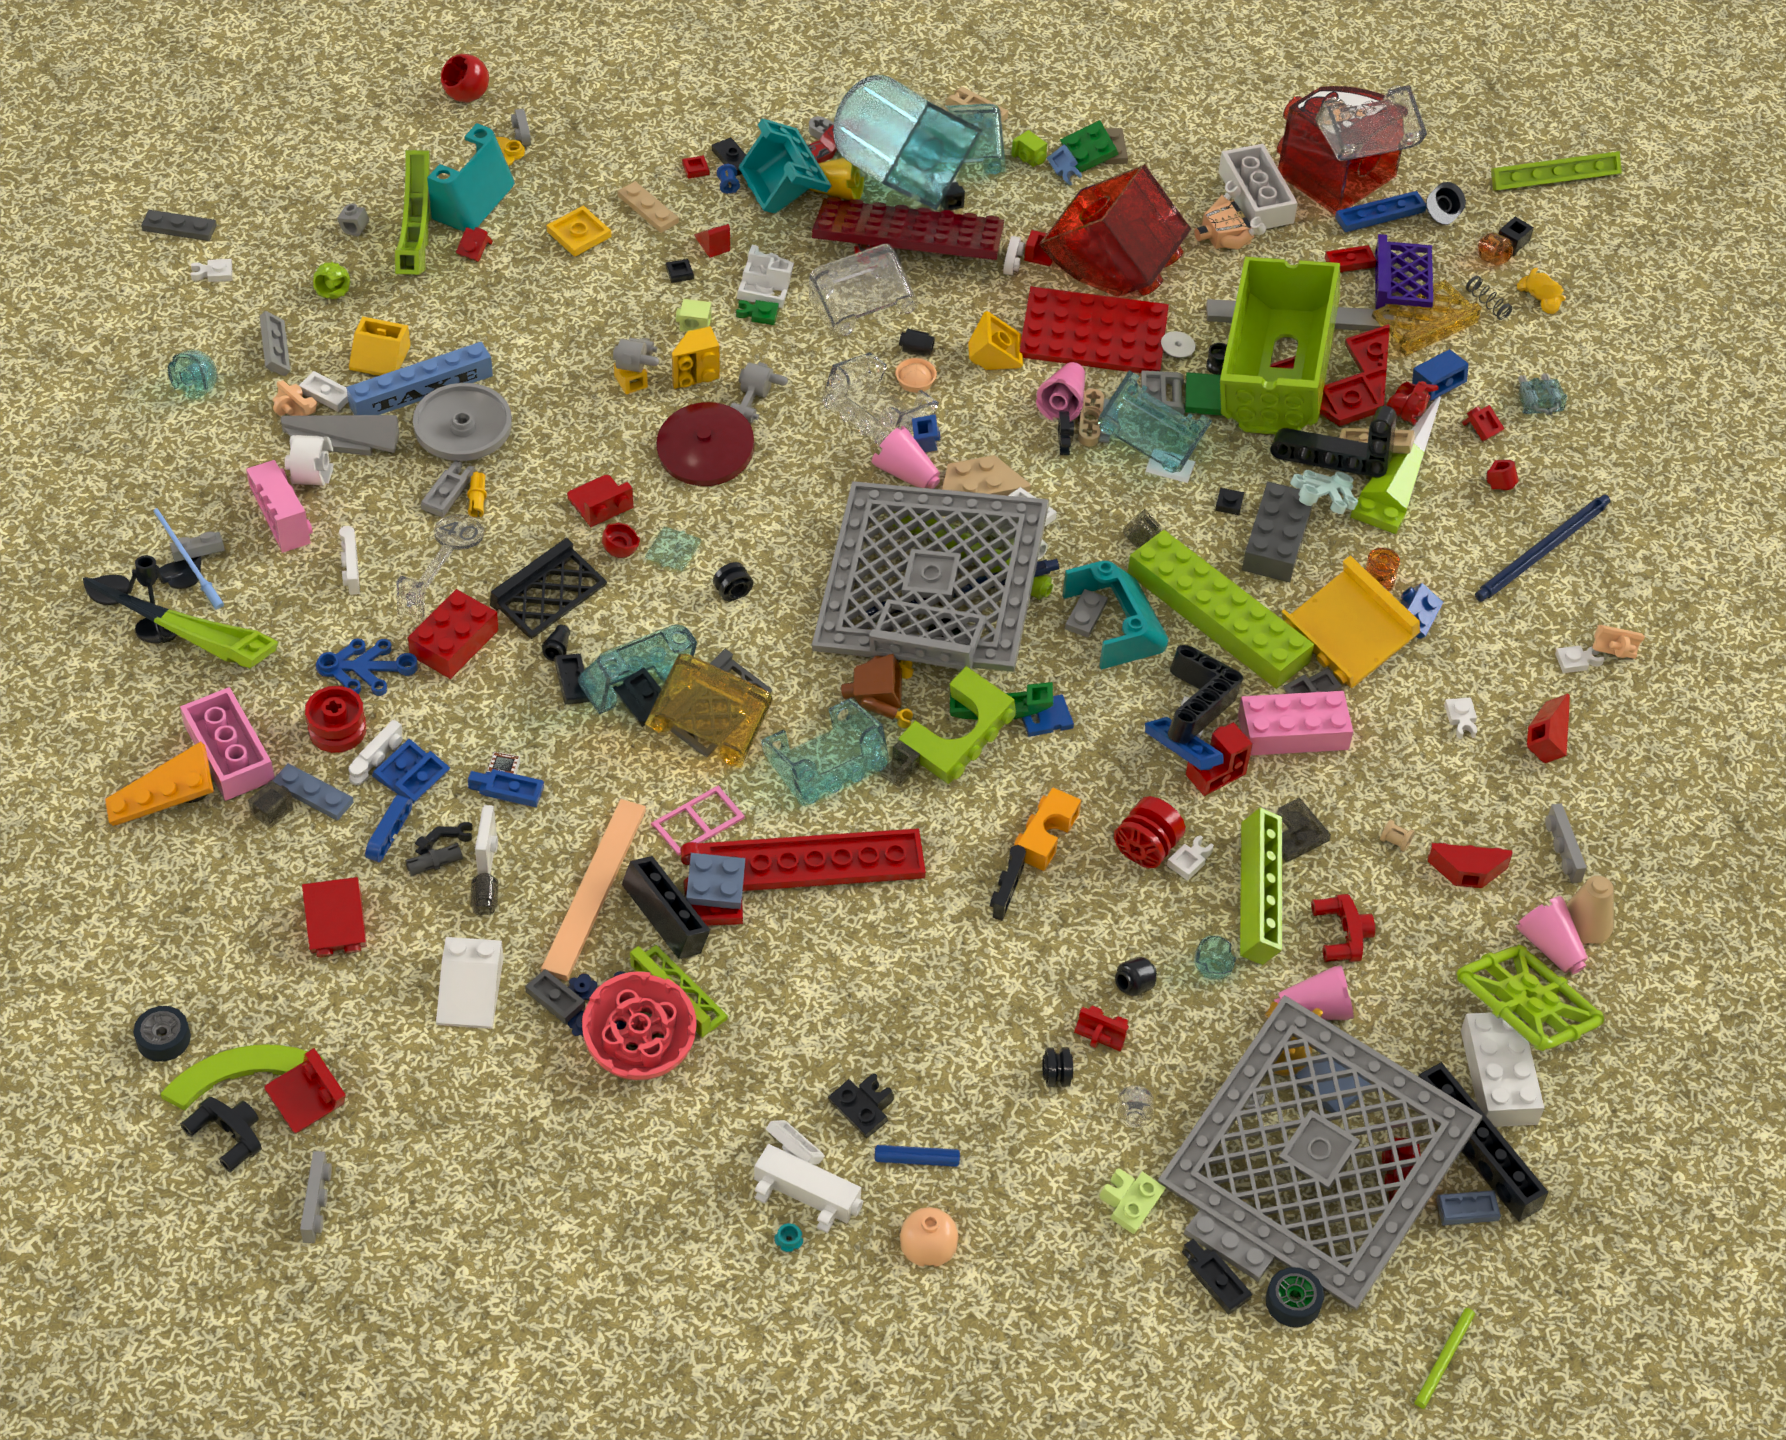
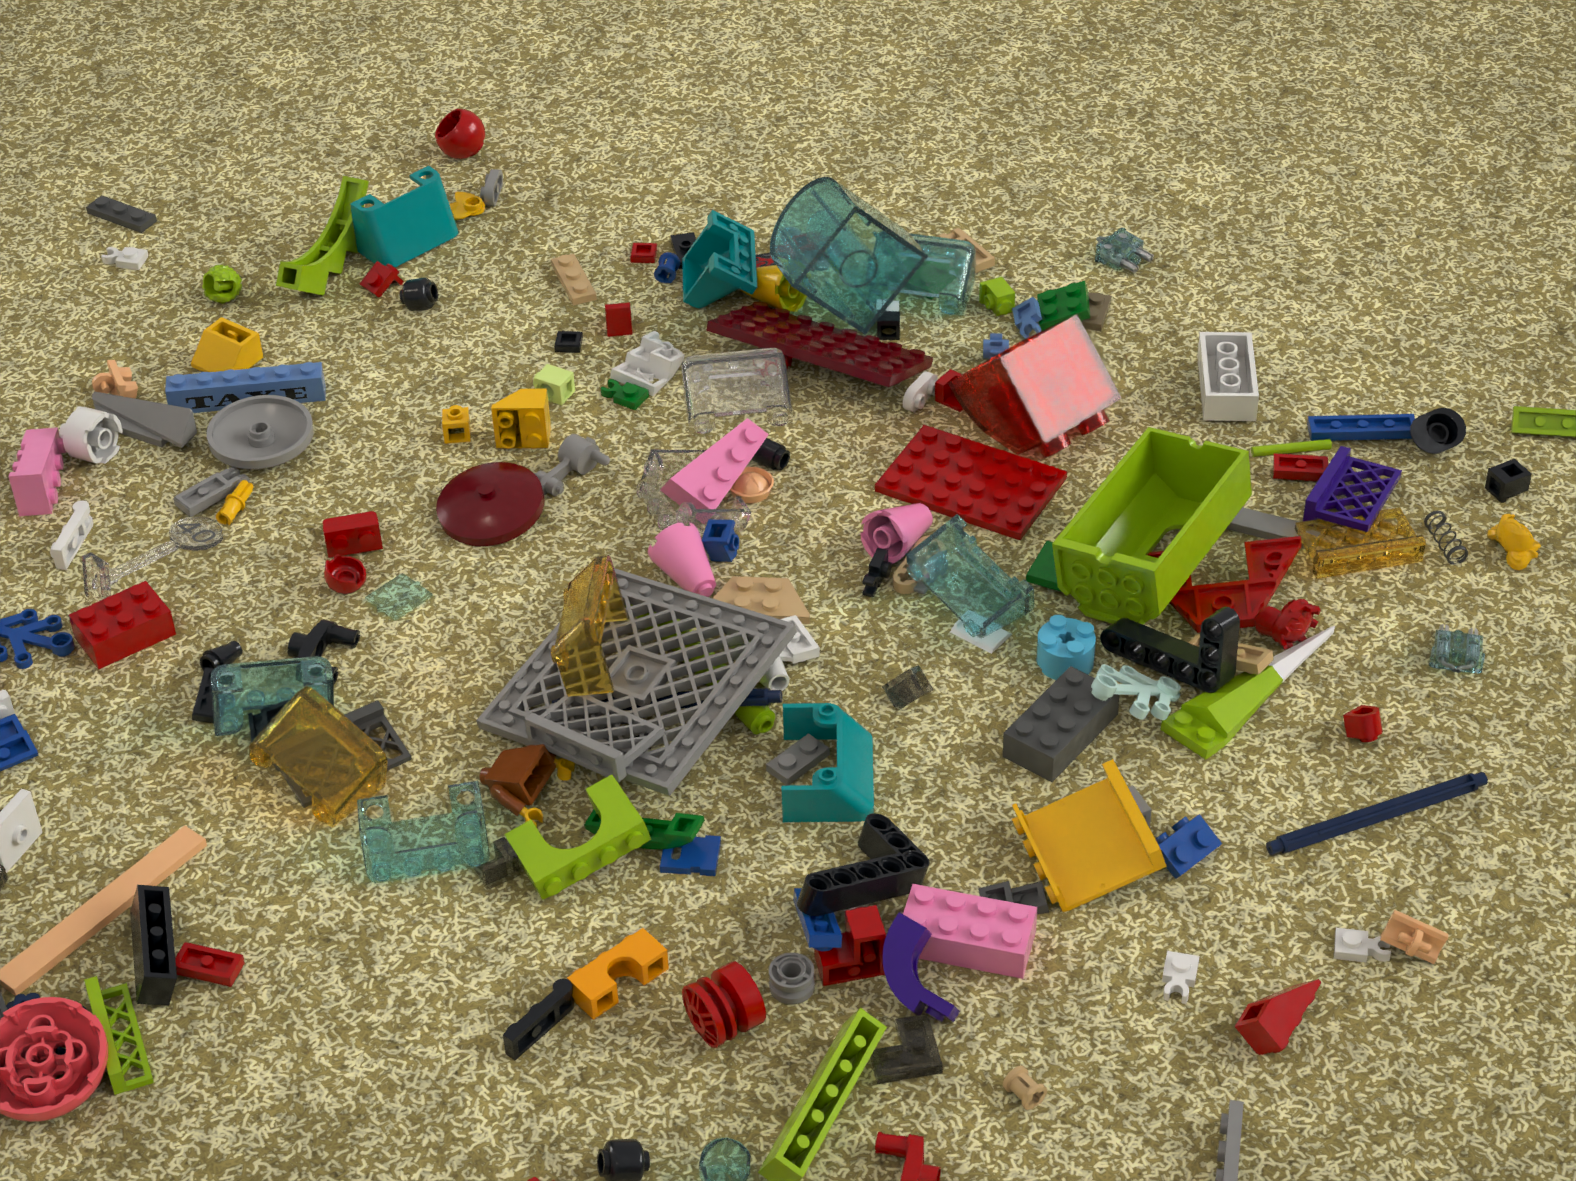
camera: 25 degrees right, 10 degrees down
(195, 369) = (41, 334): clear light blue cylinder -> none
(274, 343) = (135, 329): light grey plate -> none
(325, 391) = (151, 379): white plate -> none
(353, 219) = (279, 237): light grey plate -> none
(504, 762) = (91, 765): tile -> none
(507, 786) = (81, 785): blue hinge -> none
(520, 252) = (419, 294): none -> black head
(537, 571) = (238, 589): black fence -> none
(578, 231) = (489, 287): yellow plate -> none
(629, 614) = (318, 638): none -> black connector
(634, 354) = (461, 402): light grey piece -> none
(708, 832) = (257, 884): bright pink window -> none
(715, 881) = (219, 931): sand blue plate -> none
(732, 581) = (432, 639): black wheel -> none
(821, 858) = (335, 938): red hinge -> none
(890, 542) = (588, 603): none -> clear yellow windscreen
(894, 369) = (715, 471): none -> bright pink wedge
(995, 344) = (851, 471): yellow slope -> none
(1054, 200) = (994, 345): none -> medium blue gear
(1109, 82) = (1121, 251): none -> clear light blue piece
(1156, 384) = (1005, 547): light grey plate -> none
(1178, 344) = (1055, 512): white piece -> none
(1184, 795) = (791, 978): none -> light grey wheel
(1189, 860) = (762, 1050): white plate -> none
(1220, 609) = (949, 790): lime brick -> none
(1226, 224) = (1174, 404): light nougat torso -> none
(1229, 501) = (1026, 682): black plate -> none
(1250, 465) = (1065, 644): none -> medium azure brick
(1270, 773) = (900, 962): none -> dark purple arch
(1312, 165) = (1337, 346): clear red brick -> none
(1332, 242) = (1287, 448): none -> lime bar
(1372, 125) = (1351, 322): clear windscreen -> none
(1383, 566) = (1160, 789): clear orange wheel -> none
(1443, 370) = (1342, 602): blue brick -> none
(1469, 864) = (1098, 1145): red slope -> none
(1484, 422) = (1371, 663): red bracket -> none
(1495, 249) = (1477, 489): clear orange head -> none

